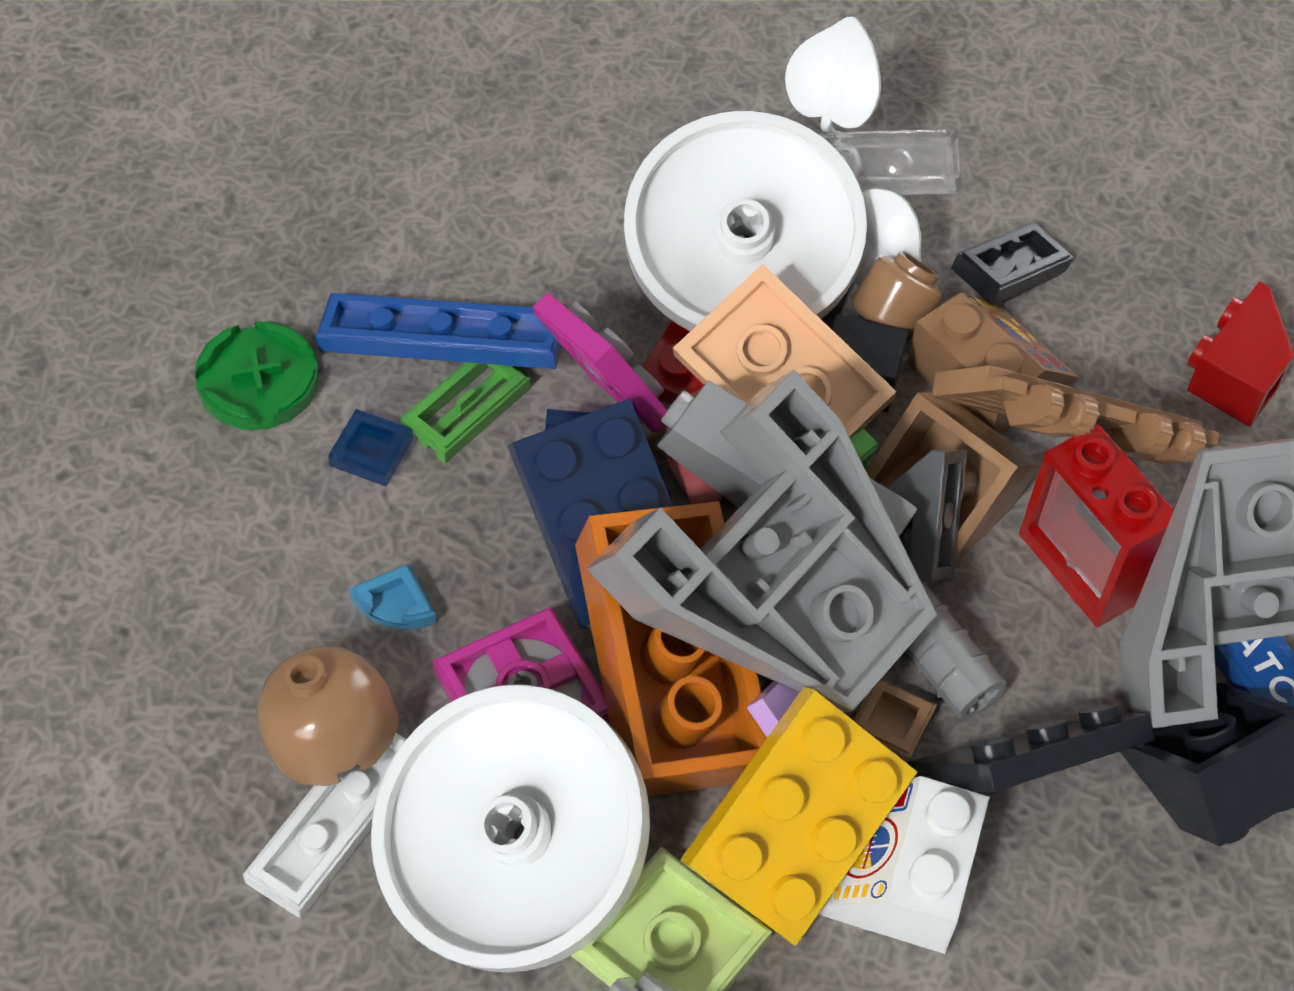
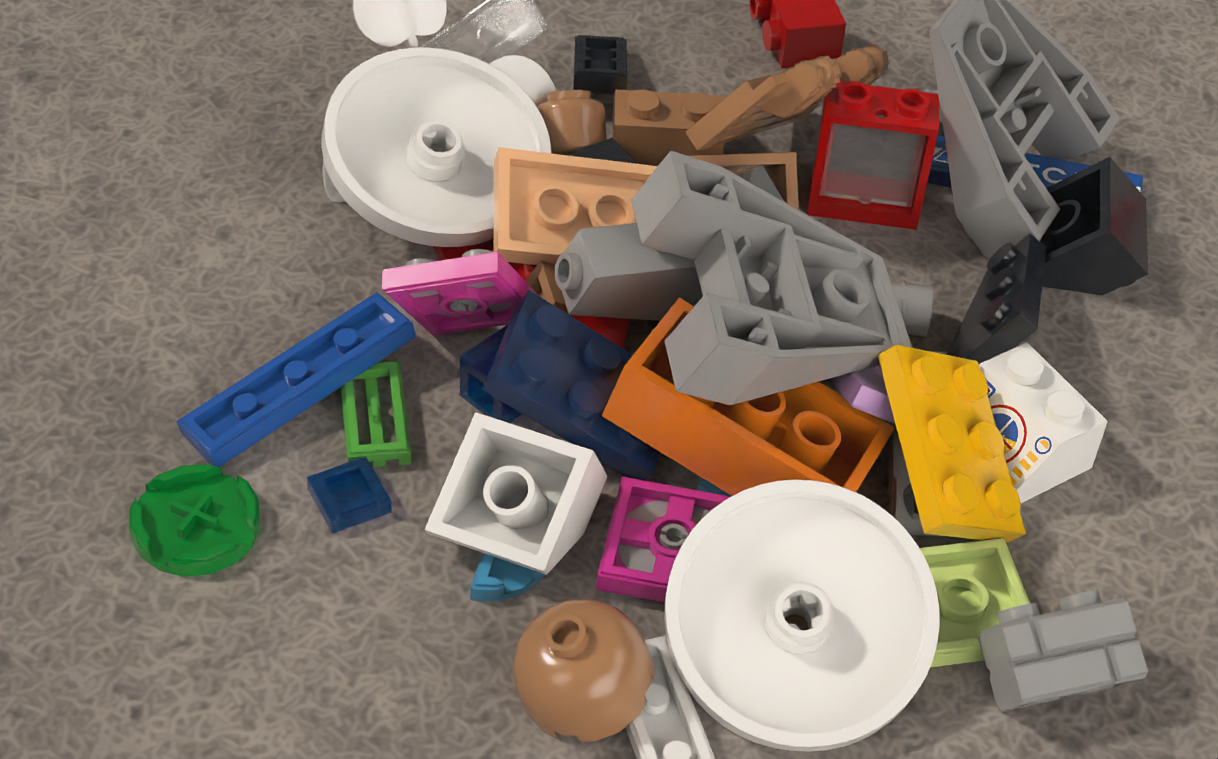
camera: 50 degrees left, 10 degrees down
(451, 552) = (517, 494): none -> white slope

